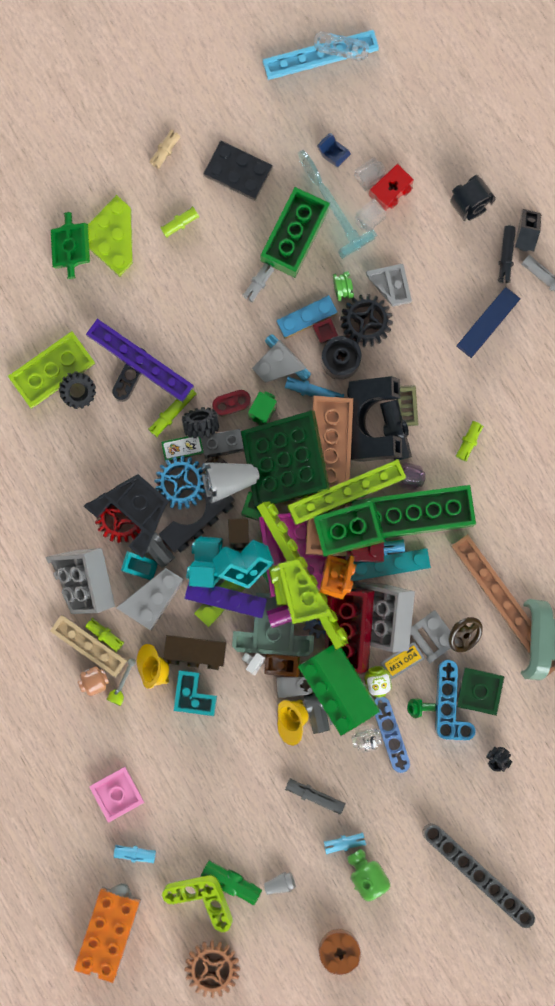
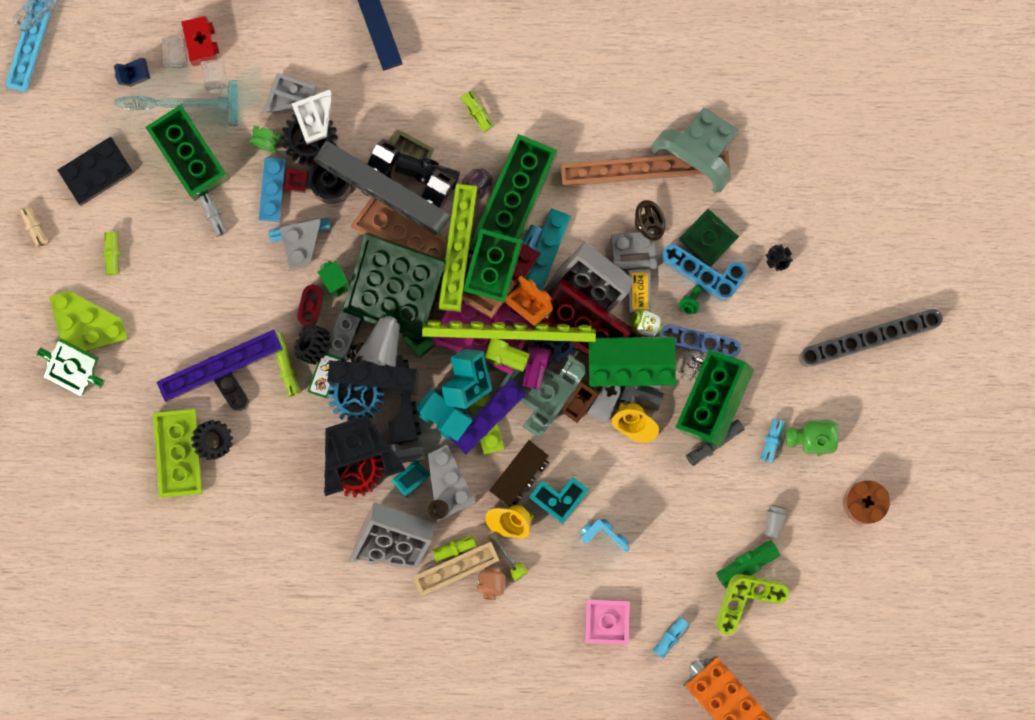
camera: 55 degrees left, 0 degrees up
(125, 609) = (435, 515): none -> dark brown bush
(182, 736) = (591, 530): none -> medium azure bracket
(198, 980) = (816, 636): nougat gear -> none
(199, 487) = (352, 374): none -> black arch
(238, 533) = (436, 369): dark brown brick -> none
(254, 662) = (561, 426): white tile -> none
(301, 593) = (526, 341): lime wing -> none
(306, 388) = (338, 230): dark azure pin -> none
(350, 775) = (714, 398): none -> green brick
(358, 402) = (382, 188): none -> dark grey beam
(384, 313) = (314, 116): none -> white wing

